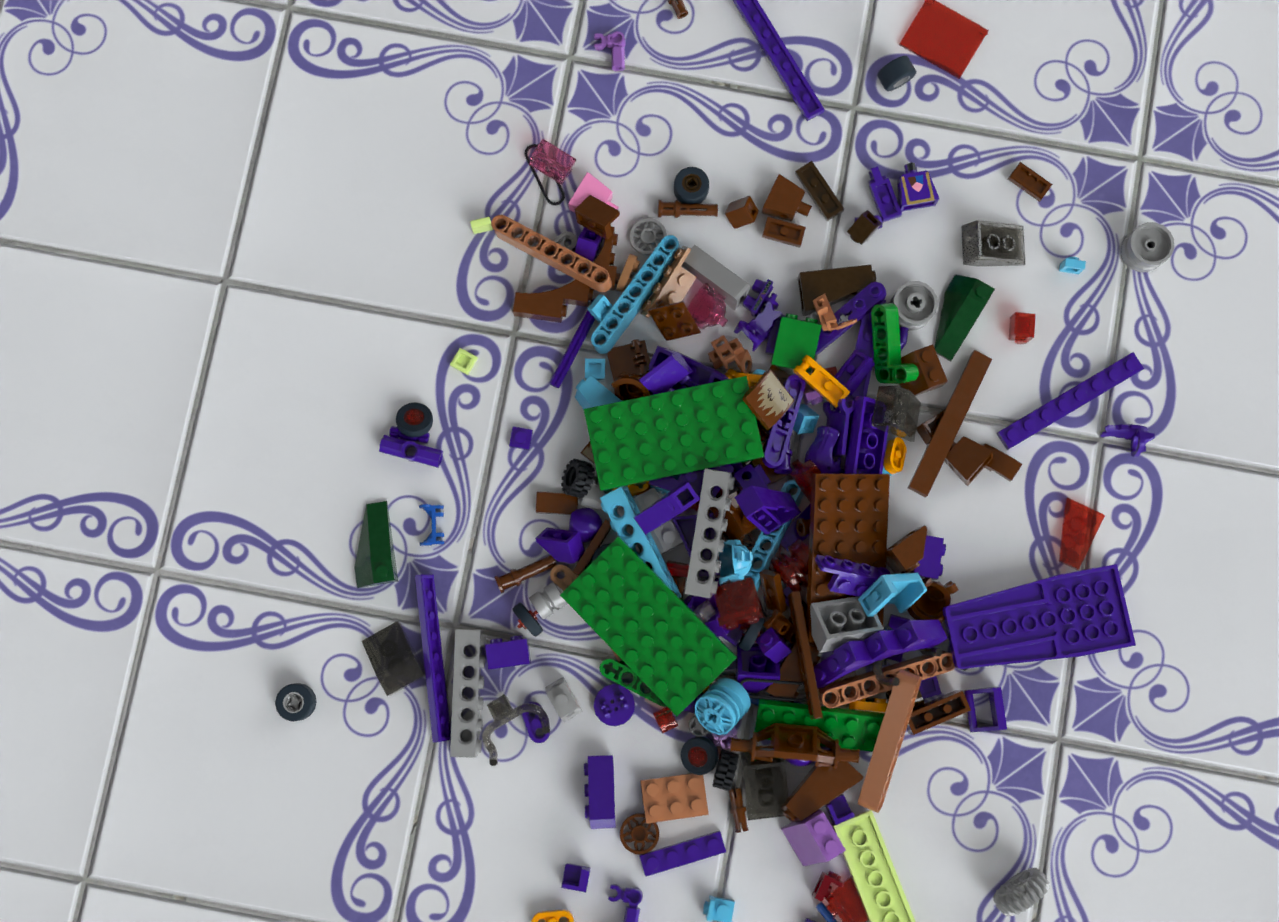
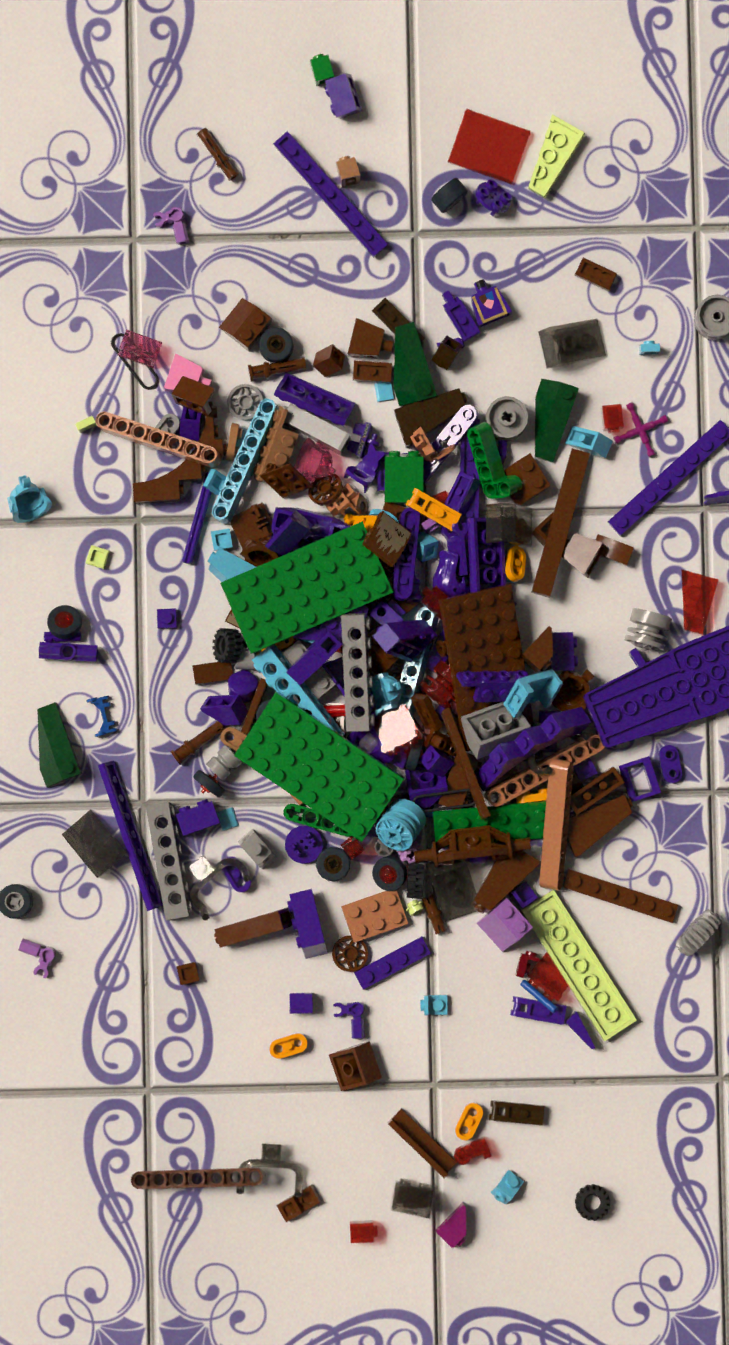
camera: 10 degrees left, 5 degrees up
(315, 766) = (46, 954): none -> medium lavender bar
(404, 290) = (28, 501): none -> medium azure helmet
(461, 819) = (188, 973): none -> reddish brown plate
(539, 660) = (227, 818): none -> medium azure piece
(542, 784) = (253, 927): none -> reddish brown slope
(640, 726) = (333, 864): none -> black wheel
(665, 159) = (246, 323): none -> reddish brown slope
(712, 338) = (324, 489): none -> reddish brown wheel
(719, 798) = (415, 907): none -> yellowish green plate
(720, 246) = (314, 399): none -> dark purple plate
(791, 255) = (383, 391): none -> medium azure piece
(799, 32) = (348, 171): none -> medium nougat slope
(825, 237) = (411, 369): none -> dark green wedge
(931, 747) = (596, 822): none -> reddish brown slope
(940, 85) = (493, 197): none -> dark purple plate
(941, 831) = (620, 895): none -> reddish brown plate
(994, 345) = (589, 441): none -> medium azure slope
(1004, 579) = (636, 657): none -> dark purple tile
(1011, 54) = (555, 153): none -> yellowish green wing
(1018, 699) = (670, 764): none -> dark purple plate
(1024, 549) = (648, 629): none -> light grey wheel
(1048, 345) = (640, 429): none -> magenta piece

